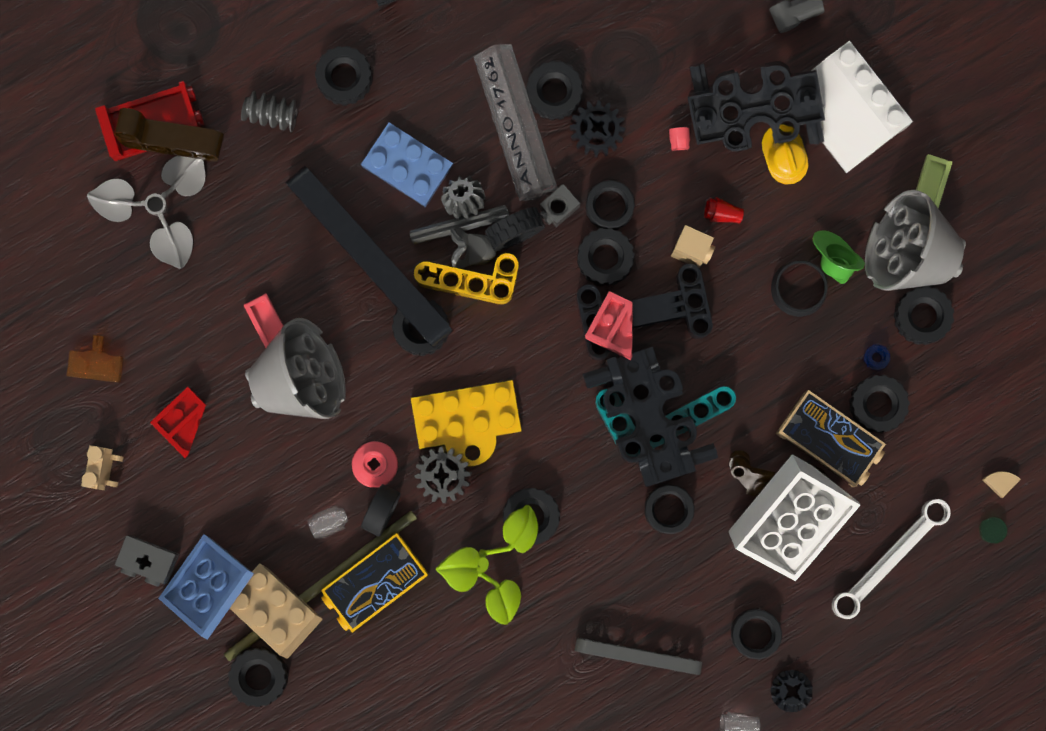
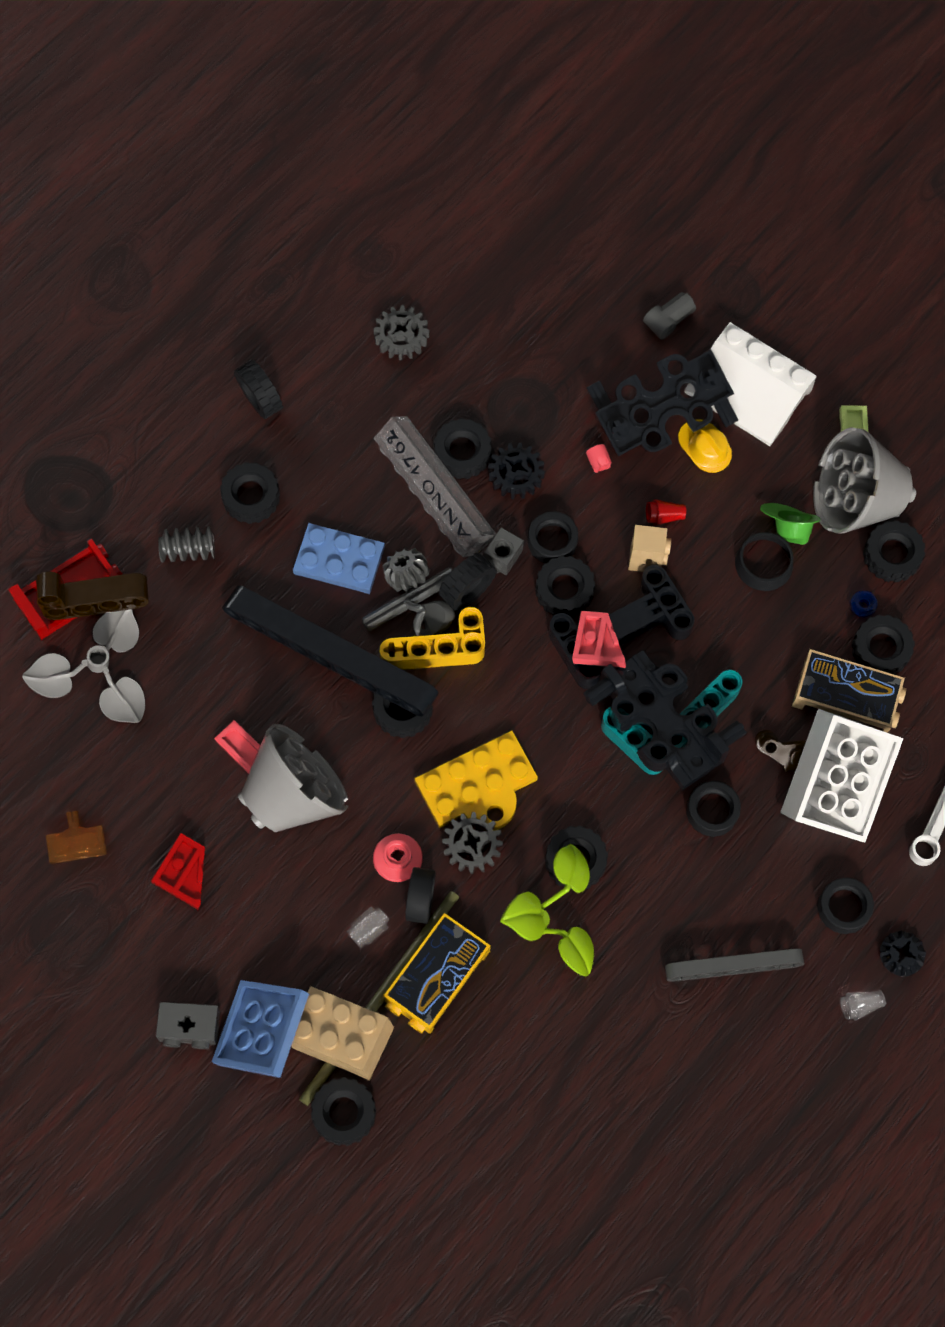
camera: 20 degrees left, 15 degrees down
(99, 468) = (109, 944): tan piece -> none

